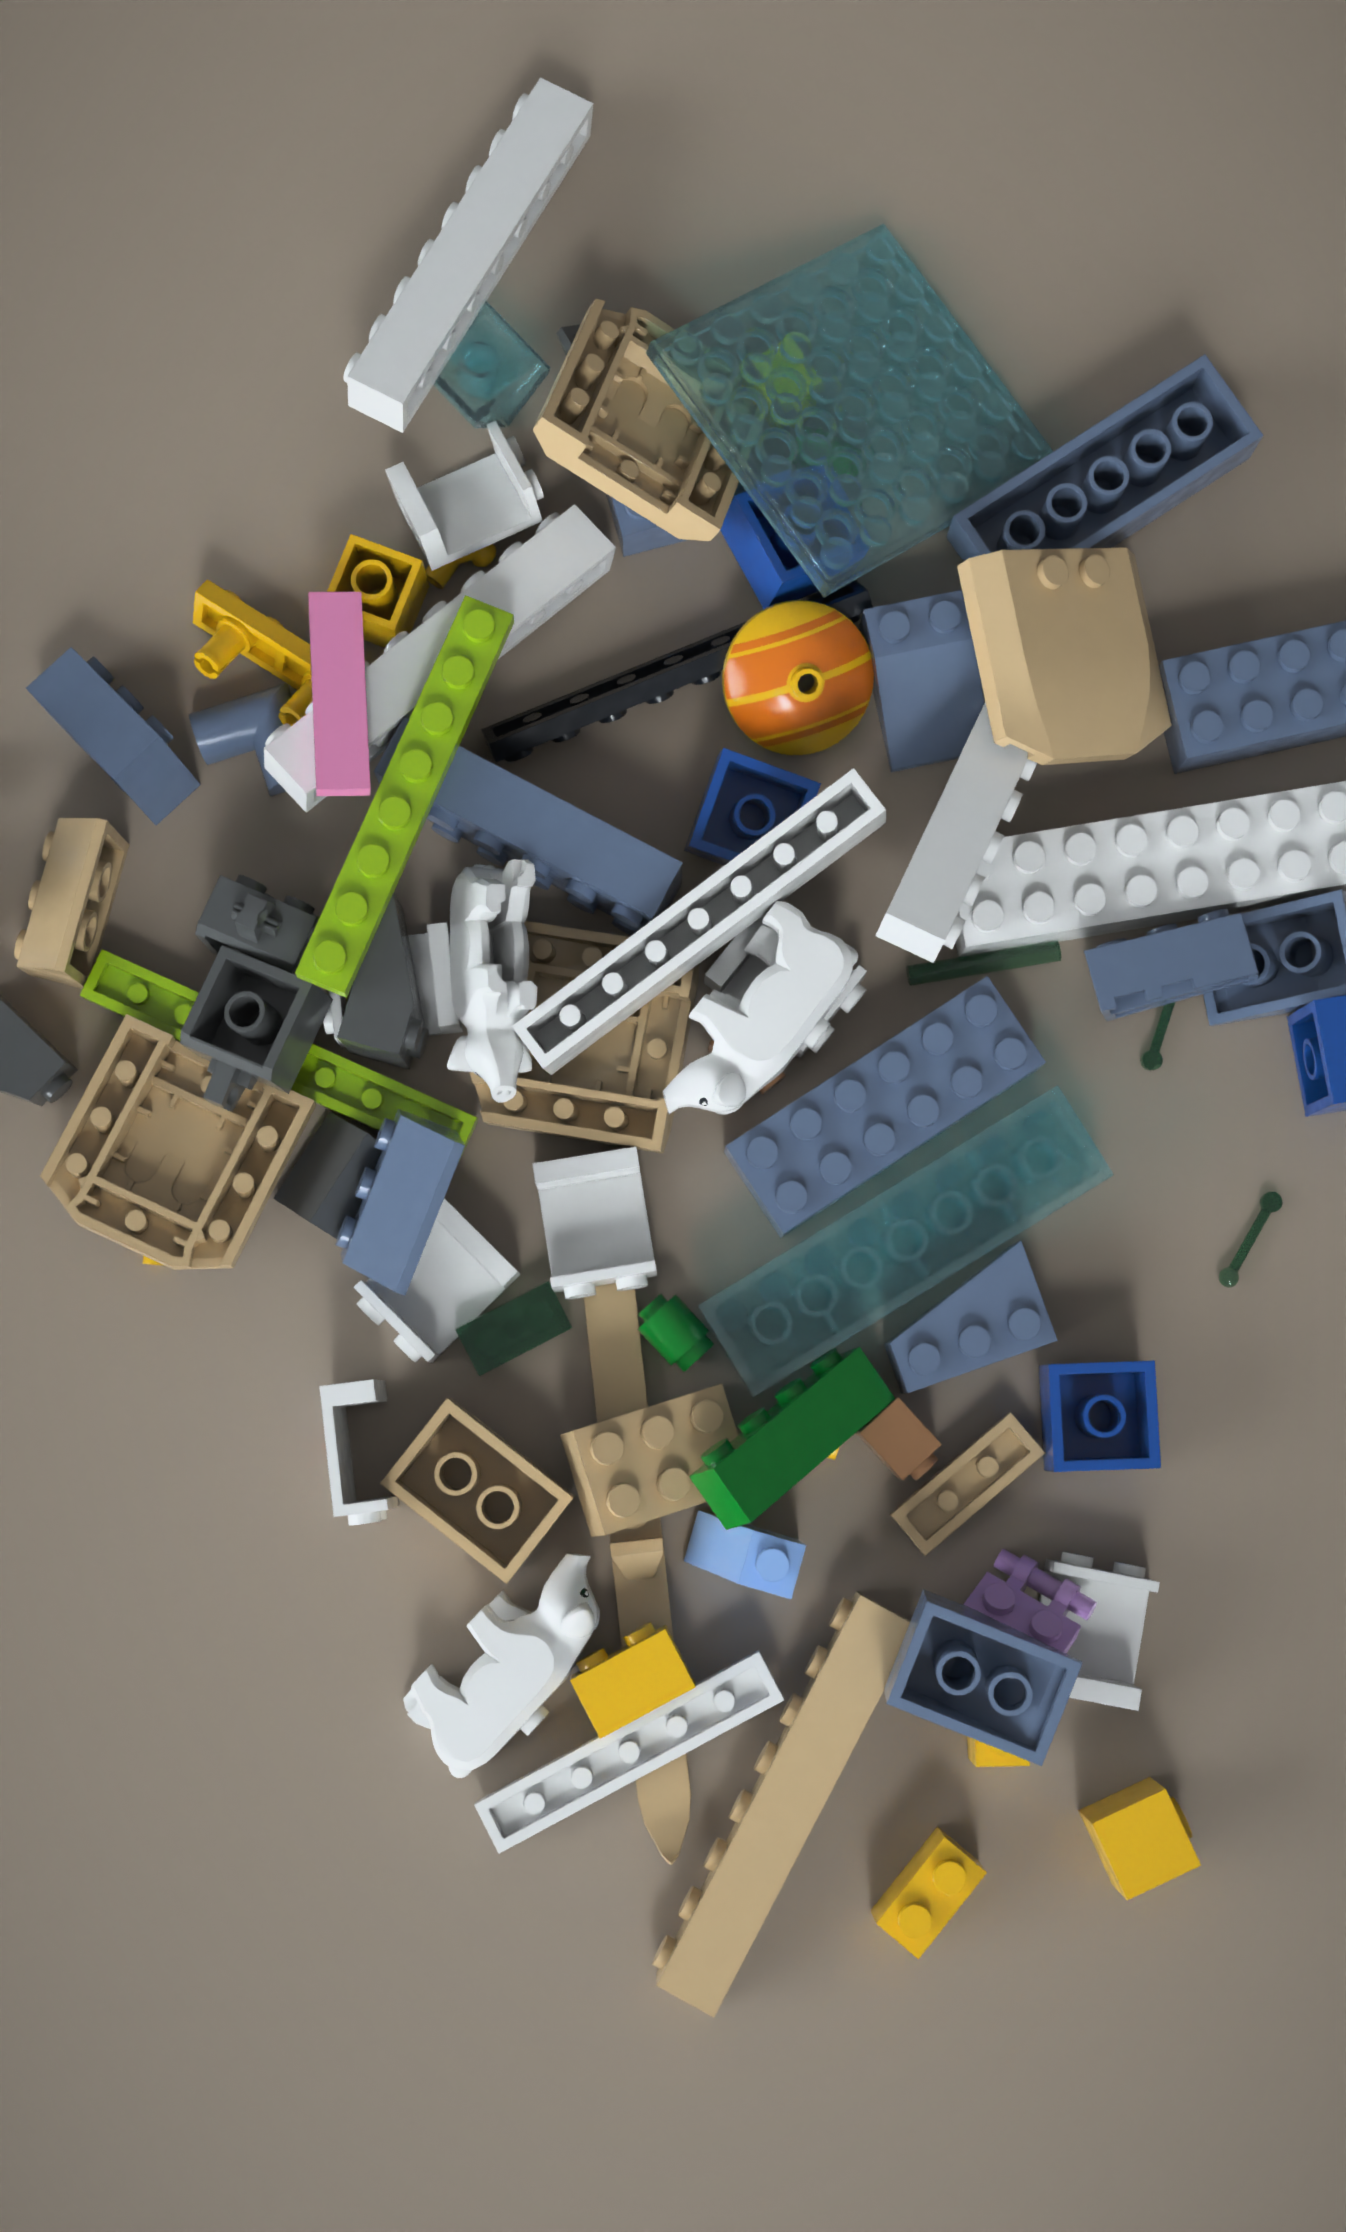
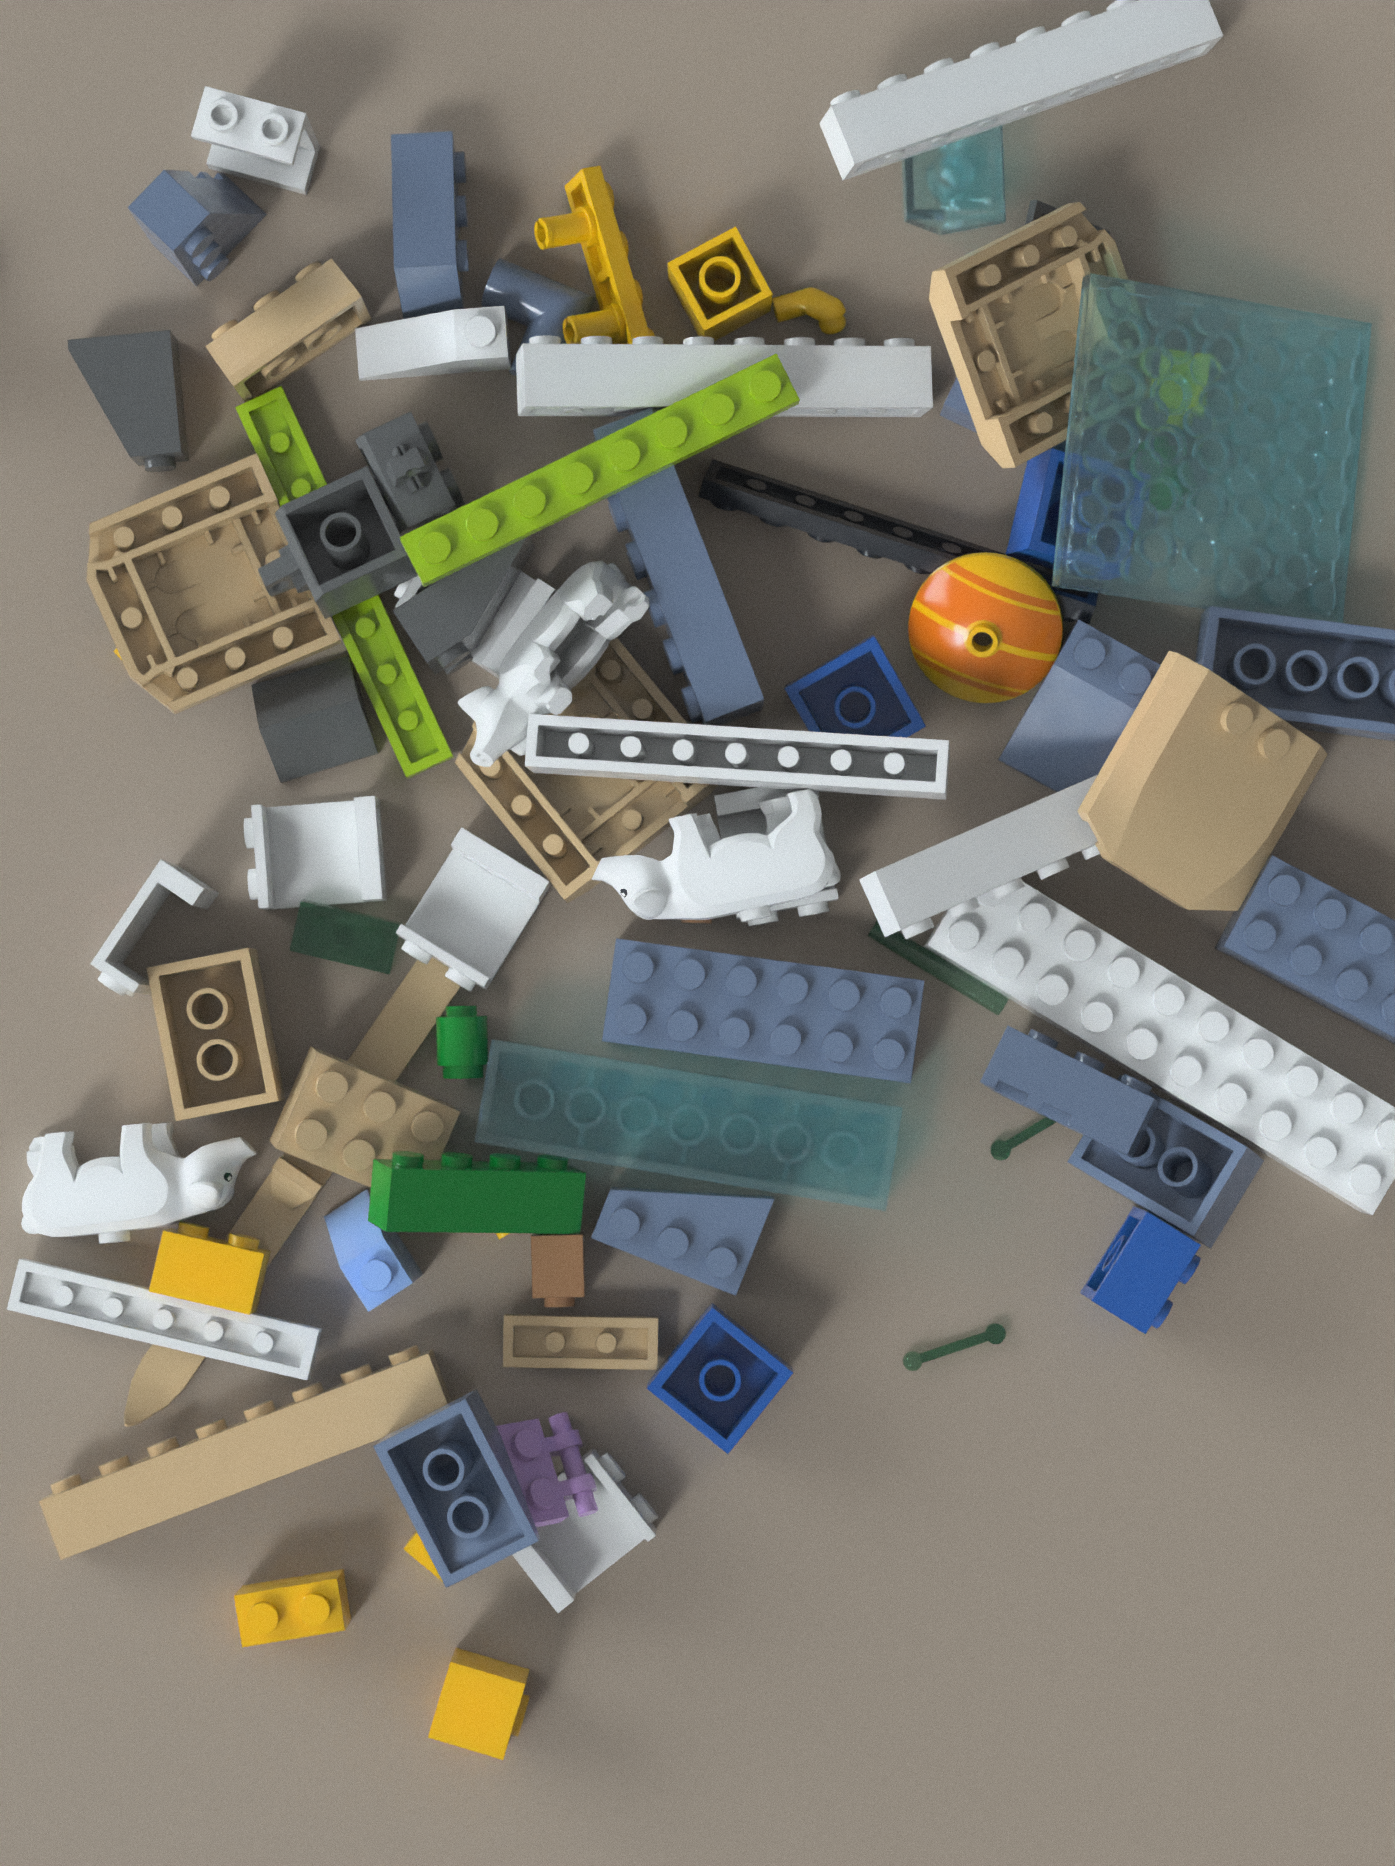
camera: 45 degrees right, 5 degrees up
(195, 819) = (435, 344): none -> white slope
(339, 694) = (615, 349): bright pink tile -> none
(400, 1199) = (339, 770): sand blue slope -> none
(470, 504) = (851, 274): white panel -> none

